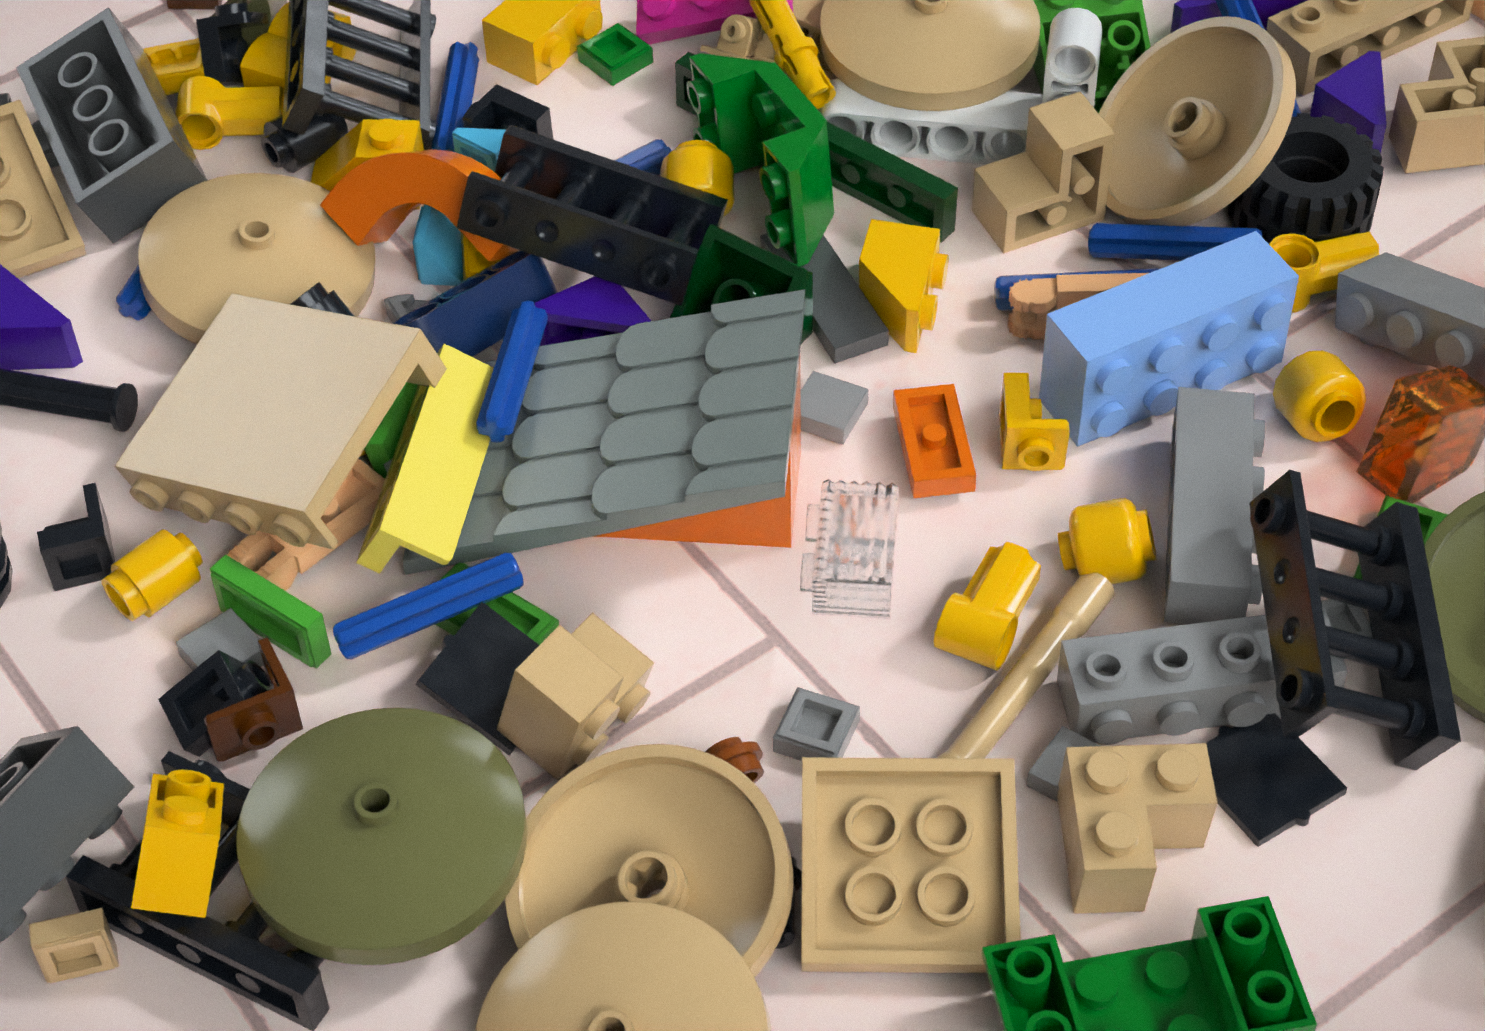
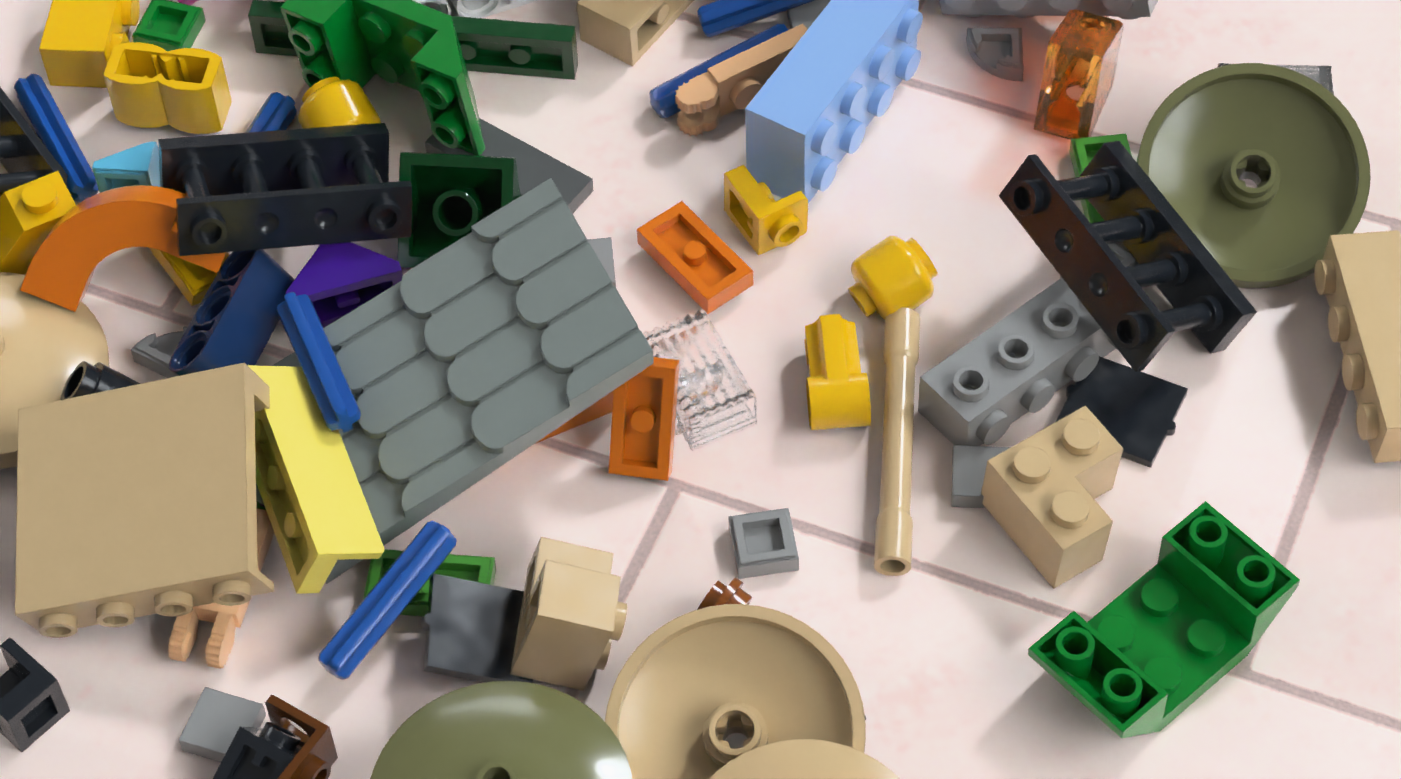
camera: 30 degrees left, 5 degrees up
(153, 574) = (114, 693): yellow brick -> none
(271, 611) = (246, 671): bright green tile -> none
(437, 249) = (148, 283): medium azure slope -> none
(504, 108) = (125, 127): black bracket -> none
(579, 93) = (168, 87): none -> yellow brick
(771, 557) = (645, 422): none -> orange plate
(898, 276) = (571, 126): yellow slope -> none
(907, 863) = (919, 613): tan plate -> none
(1209, 507) = (955, 211): light grey brick -> none
(1319, 396) = (973, 79): yellow head -> none
(1377, 381) = (997, 51): none -> light grey tile

